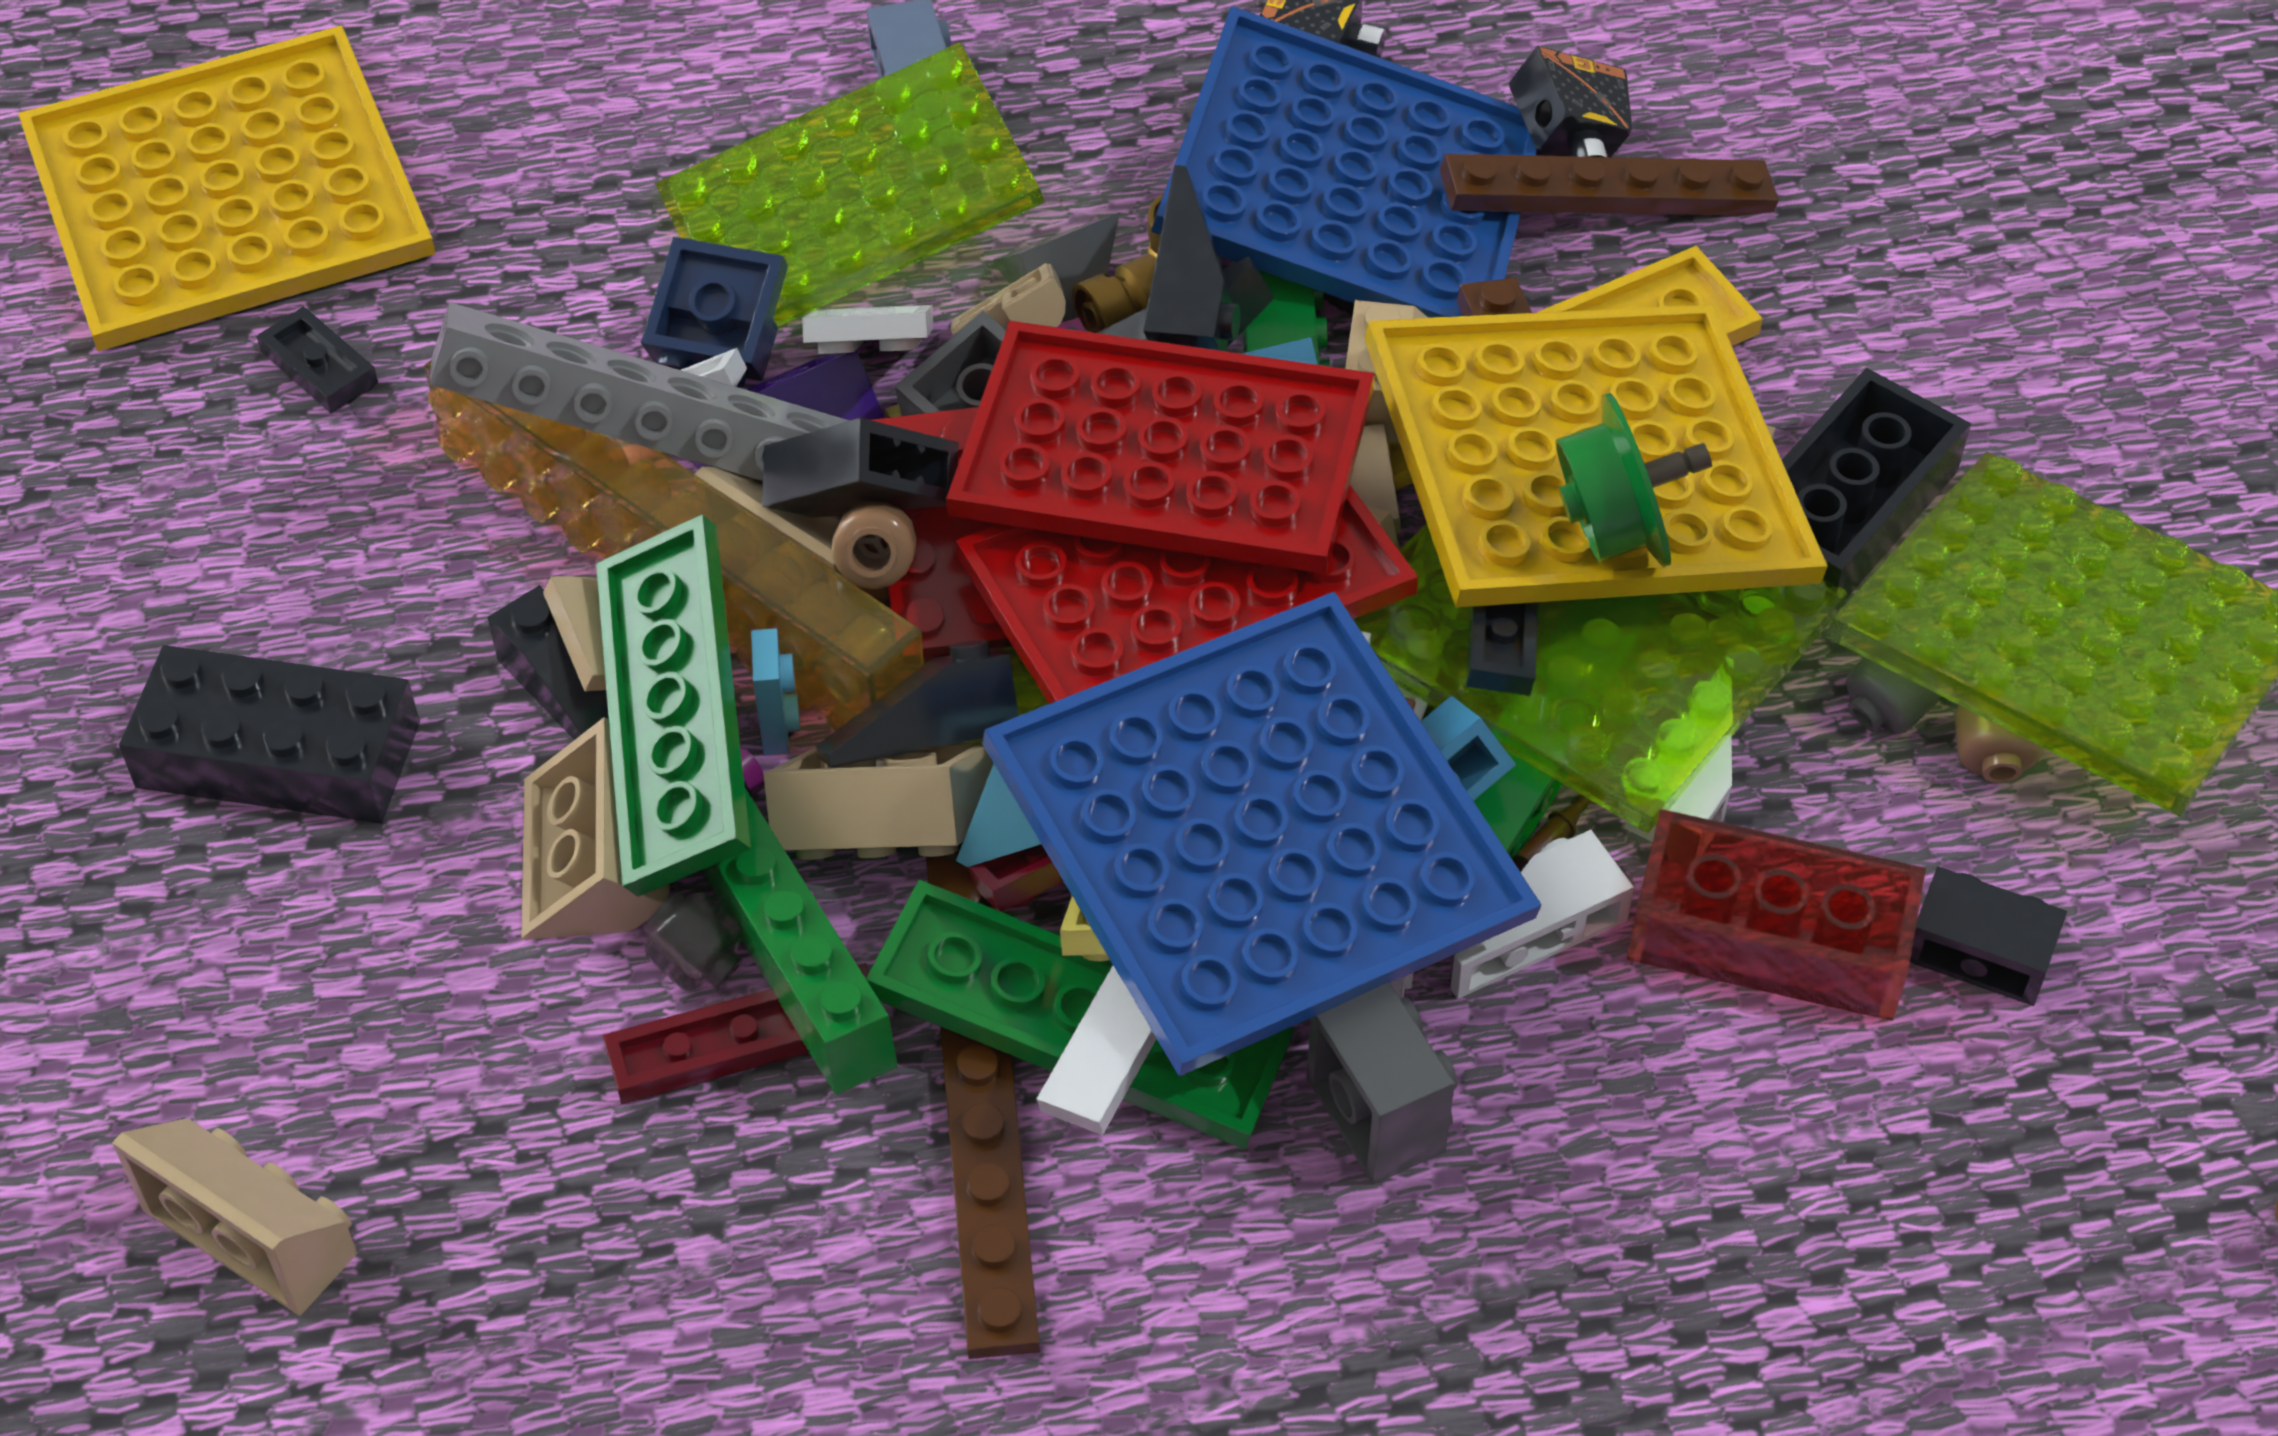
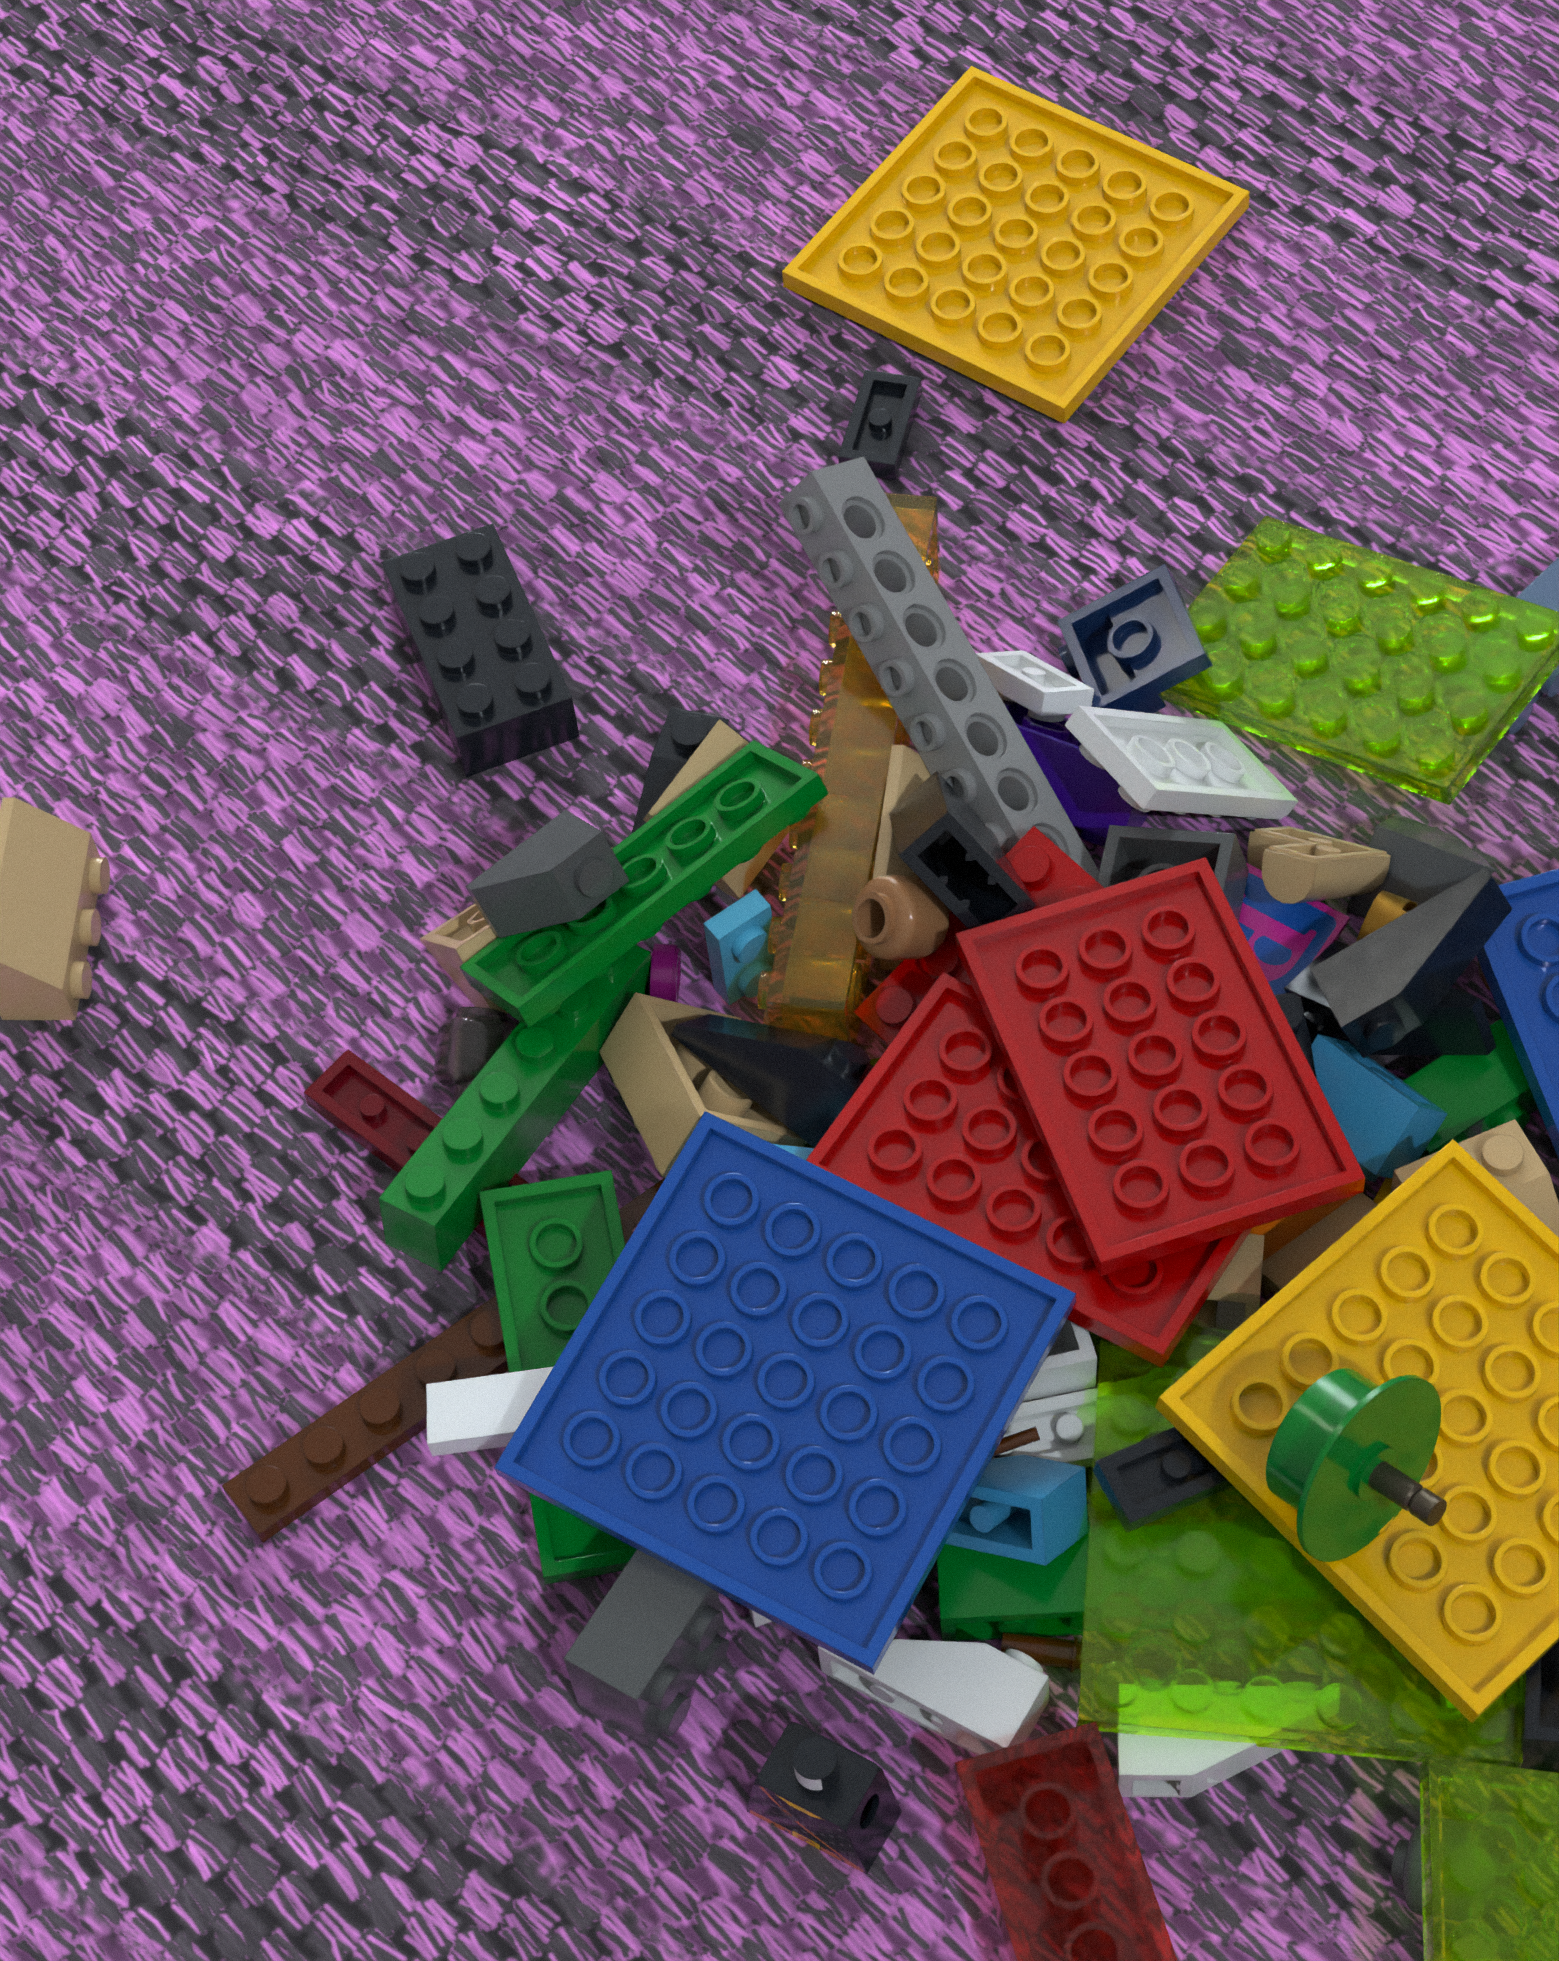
camera: 65 degrees right, 5 degrees up
(616, 754) = (548, 878): none -> dark grey slope
(1592, 1027) = (819, 1797): none -> black torso

